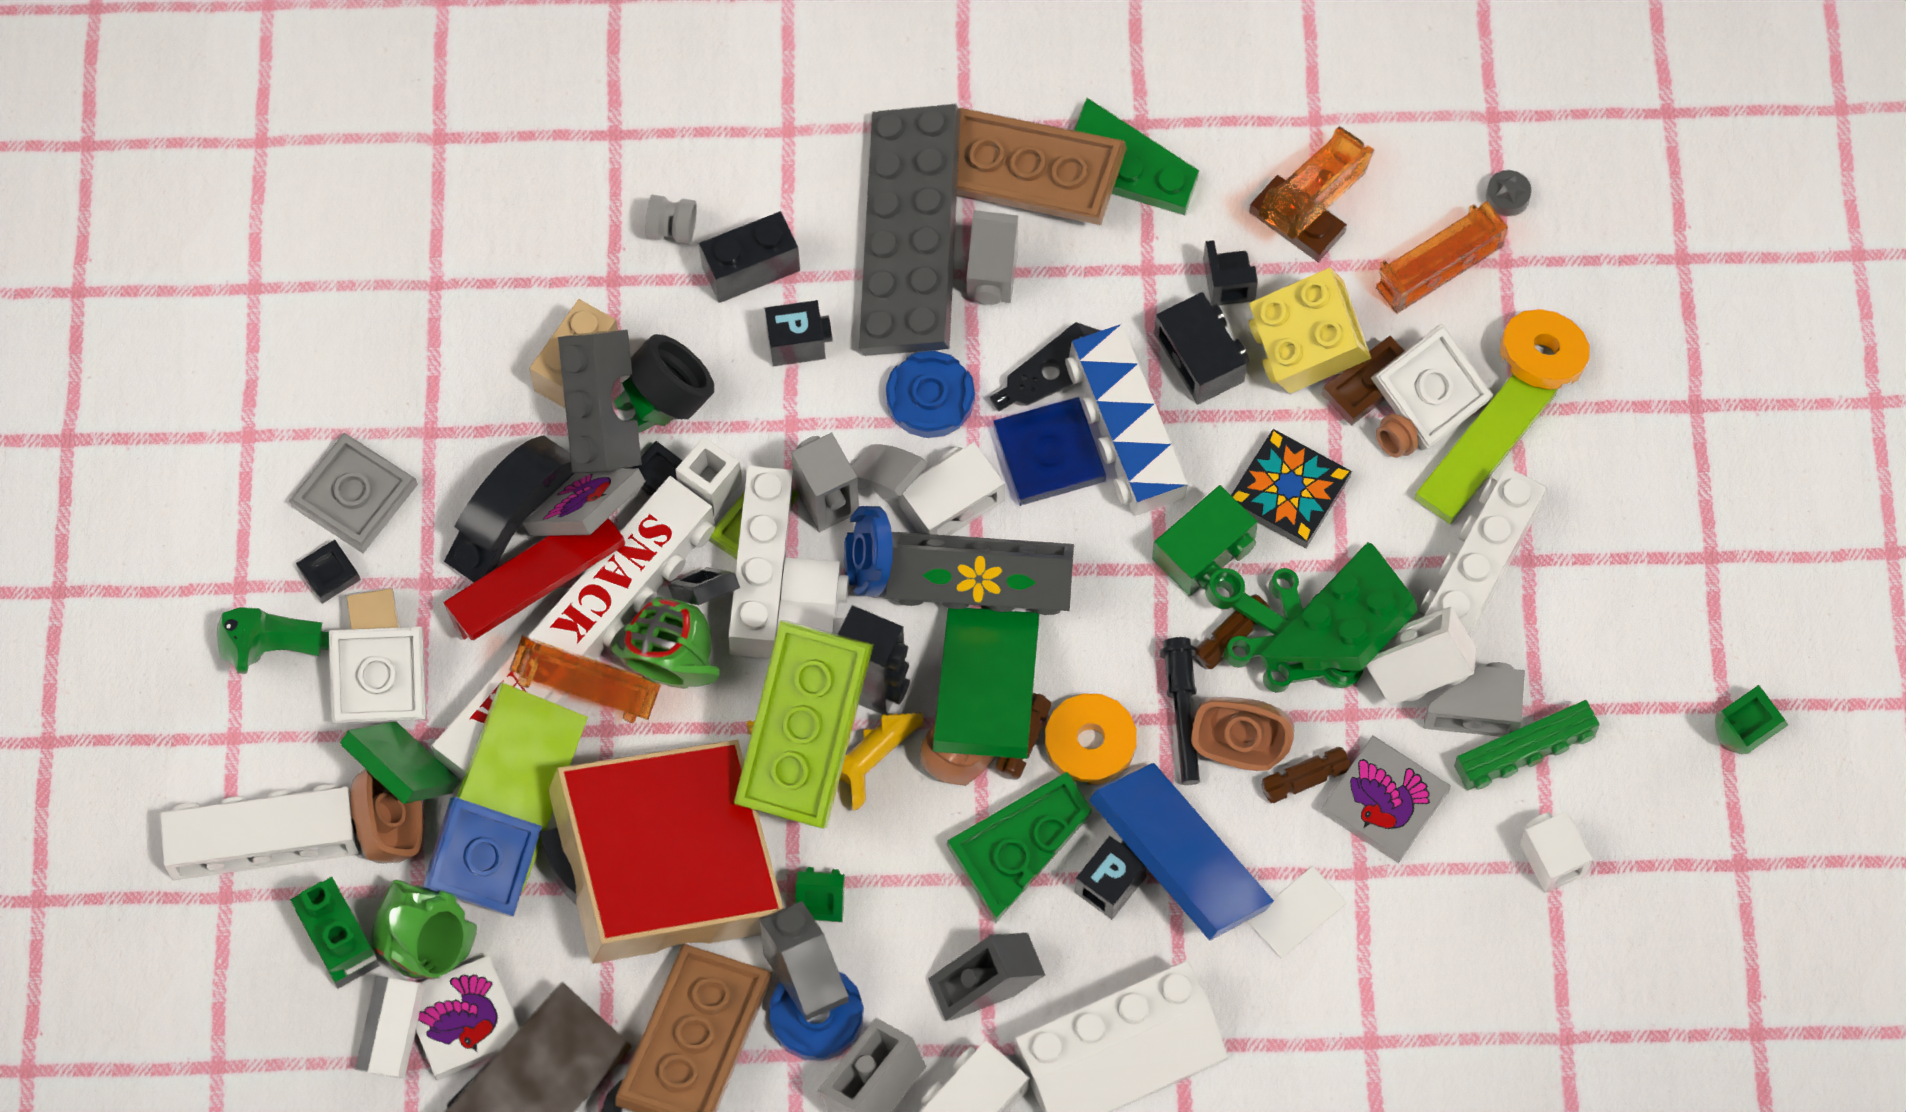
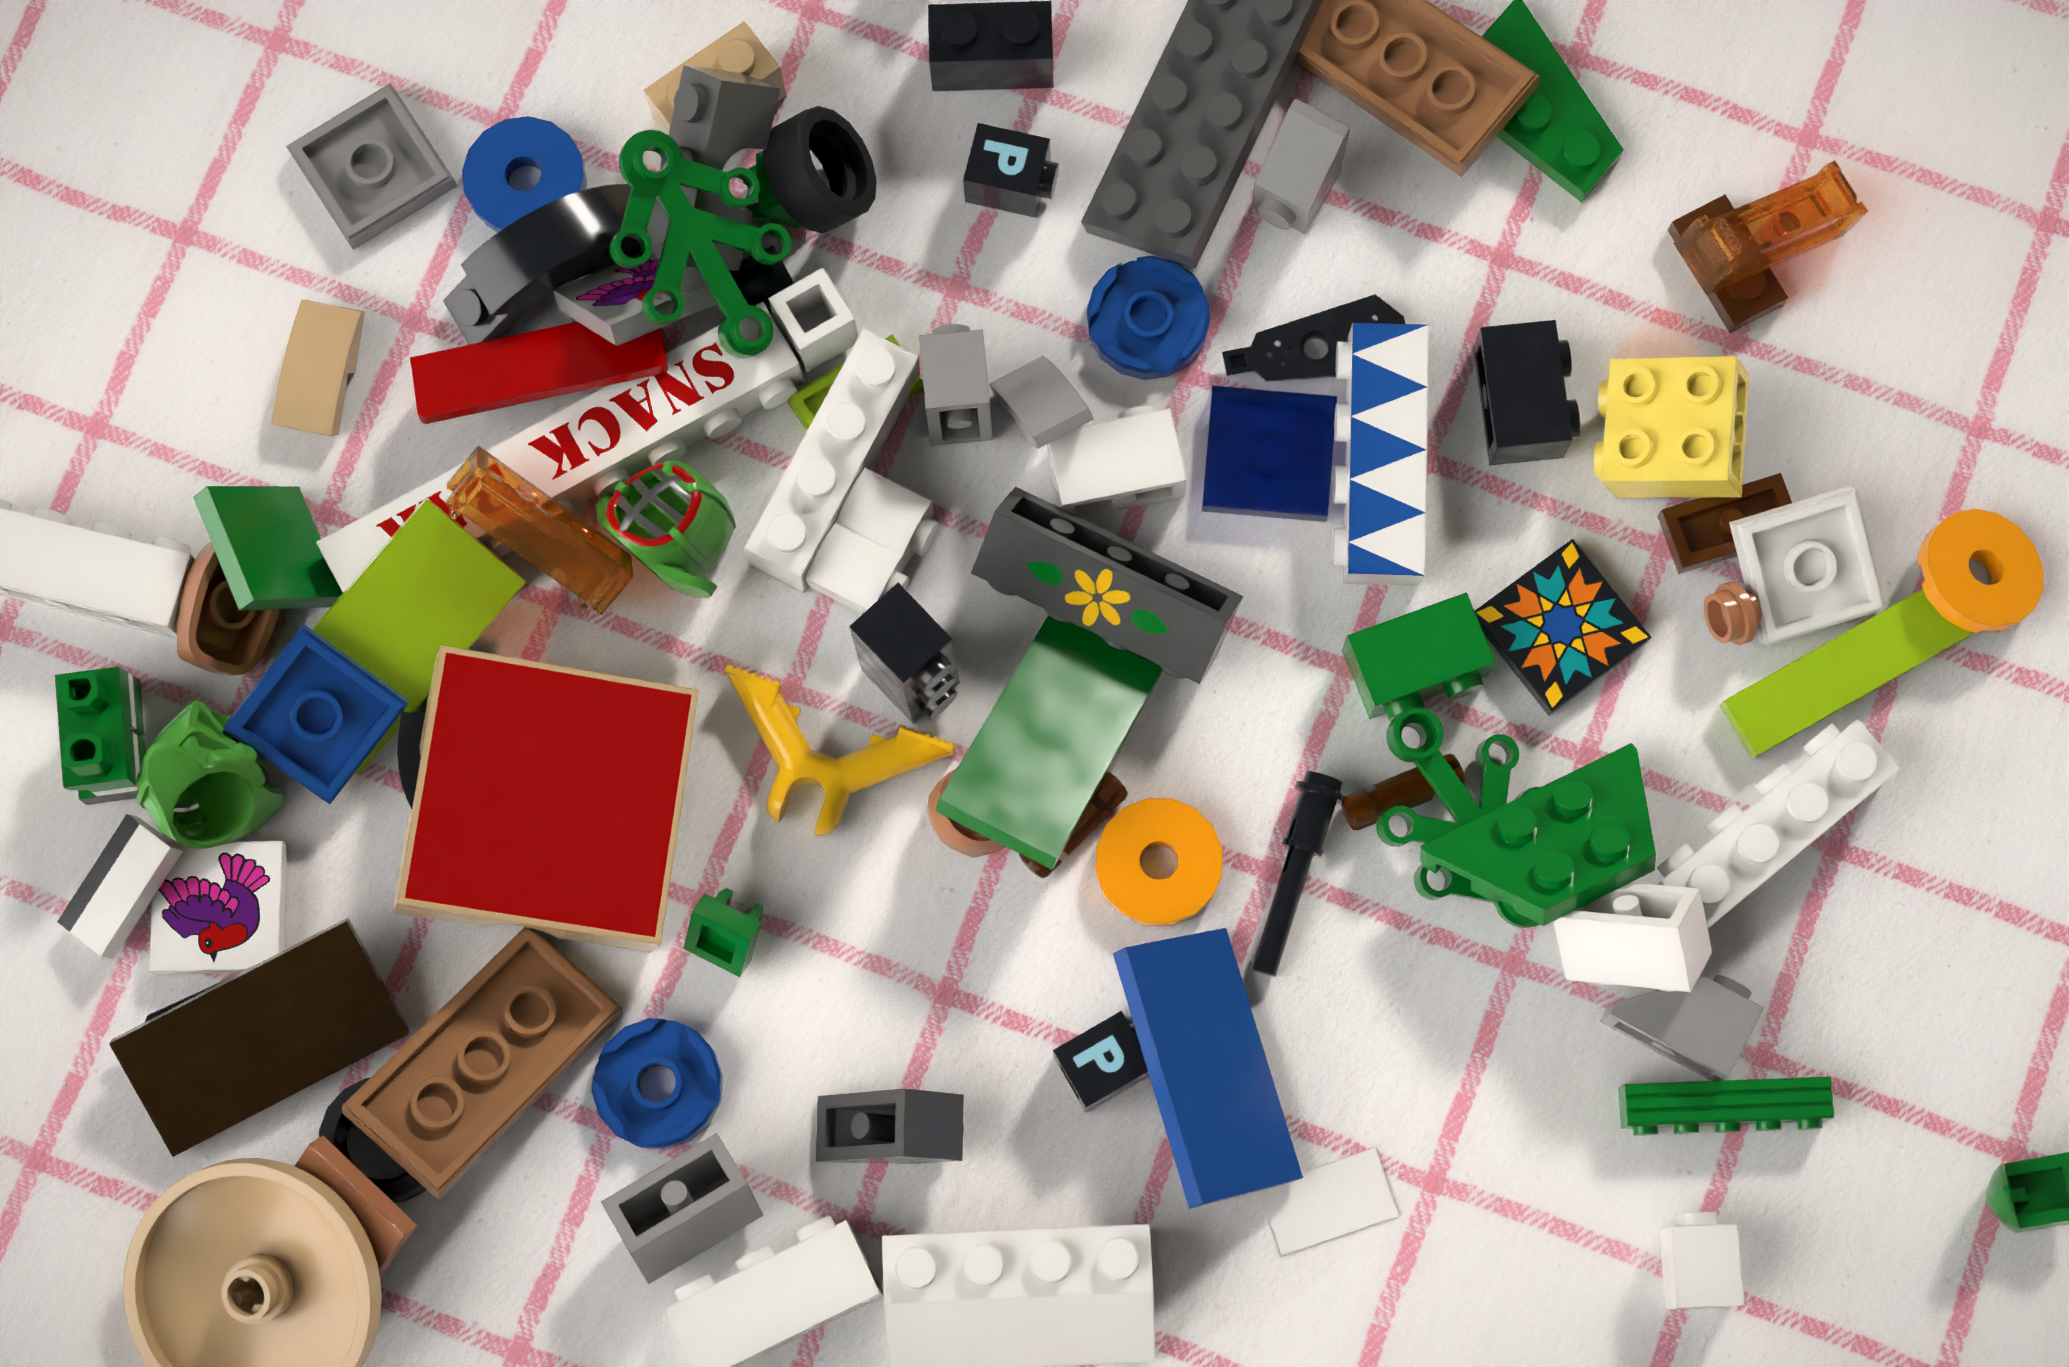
camera: 25 degrees right, 10 degrees up
(250, 632) = (160, 302): green animal -> none
(328, 571) = (298, 257): black tile -> none
(377, 675) = (294, 419): white tile -> none
(452, 439) = (513, 145): none -> blue tile
(612, 444) = (693, 234): none -> green plant
(703, 585) = (743, 466): black tile -> none
(802, 960) = (659, 1018): dark grey slope -> none
(803, 724) = (775, 712): lime tile -> none
(869, 551) = (973, 502): blue tile -> none
(1019, 841) = (1007, 963): green wing -> none
(1229, 276) = (1603, 308): black panel -> none
(1242, 732) = (1355, 938): nougat piece -> none
(1305, 774) = (1417, 1024): reddish brown axle -> none
(1385, 799) = (1508, 1099): light grey tile -> none
(1442, 257) = (1896, 391): clear orange container -> none
(1508, 192) = (2023, 336): dark grey tile -> none

